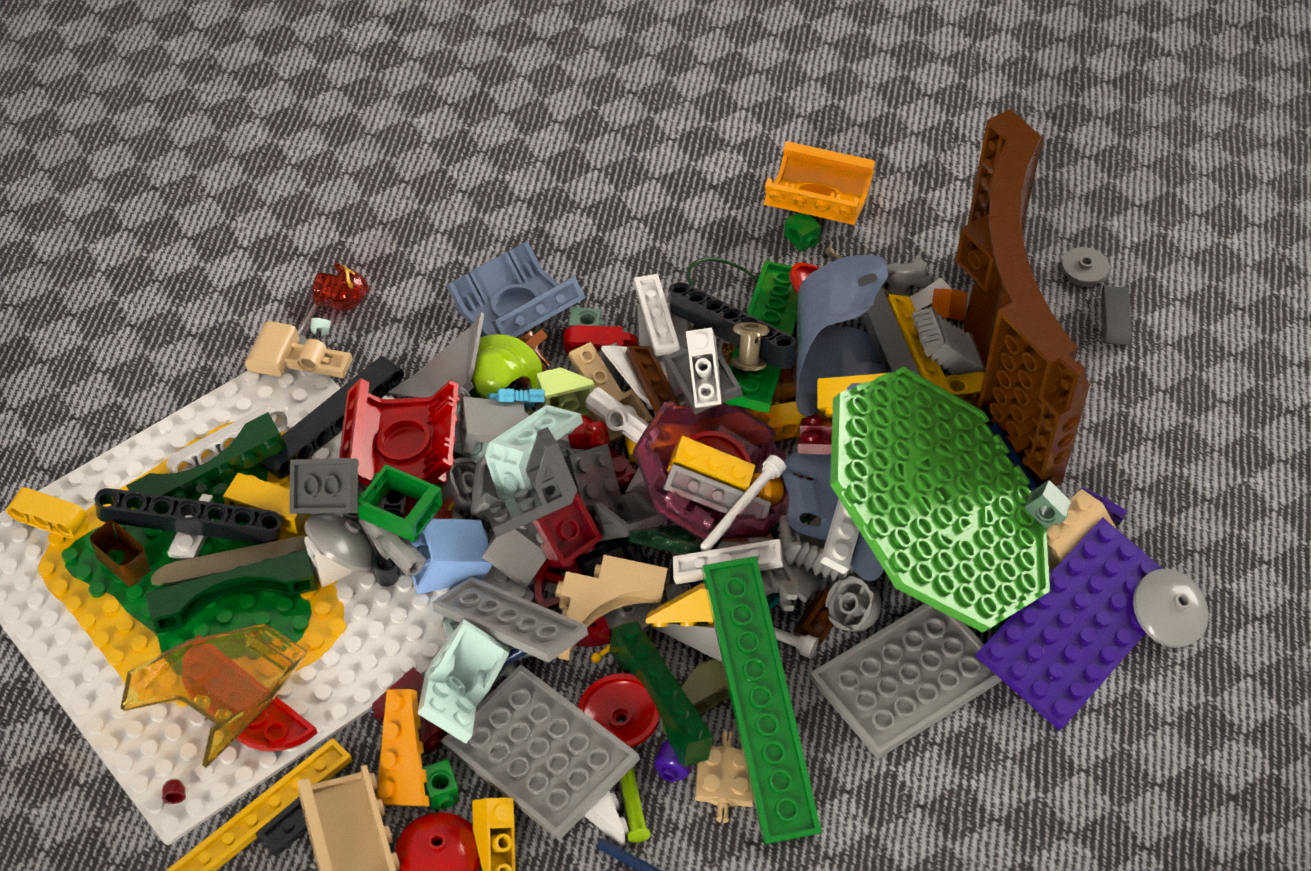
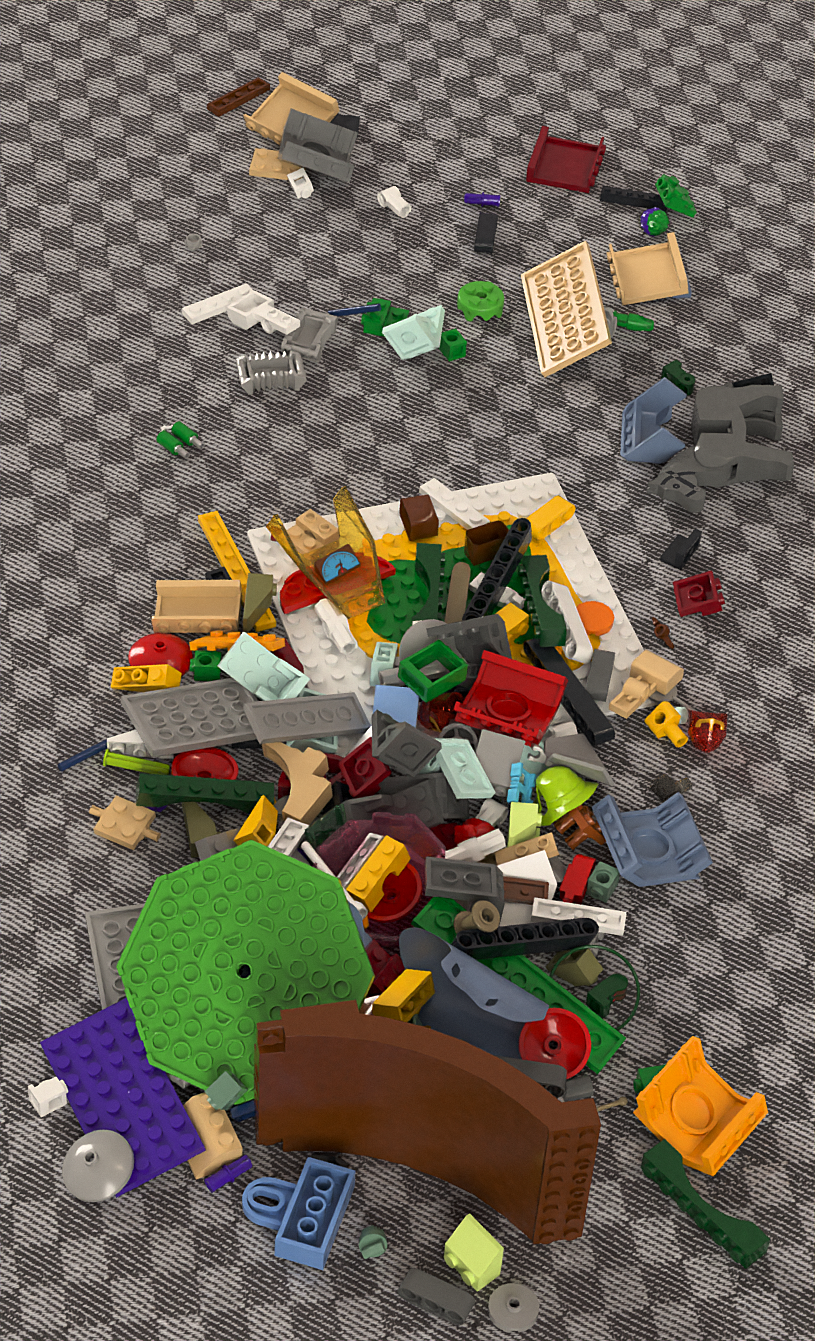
camera: 110 degrees right, 5 degrees down
(49, 385) = (681, 549): none -> black panel
(50, 619) = (453, 505): none -> white plate
(91, 642) = (419, 517): none -> reddish brown piece
(127, 349) = (699, 594): none -> dark red plate
(170, 745) = (312, 532): none -> tan brick
(194, 371) = (662, 632): none -> reddish brown piece
(200, 423) = (596, 617): none -> orange tile
(229, 683) = (336, 564): none -> slope
(297, 394) = (600, 674): none -> dark grey beam
(316, 760) = (258, 598): none -> olive slope
(322, 665) = (335, 626): none -> white piece
(345, 327) = (669, 726): none -> yellow piece
(367, 594) = (383, 659): none -> light aqua slope
(428, 311) = (665, 787): none -> clear smoke piece
(704, 367) = (462, 869): white slope -> none
(720, 286) = (606, 993): none -> dark green leg
(761, 701) = (157, 833): green plate -> none
(887, 198) = (738, 1237): none -> dark green arch
(1067, 293) = (474, 1253): none -> yellowish green slope
(1098, 373) = (372, 1242): none -> sand green piece
(1114, 424) = (306, 1211): none -> medium blue brick
(1121, 687) = (48, 1096): none -> white brick

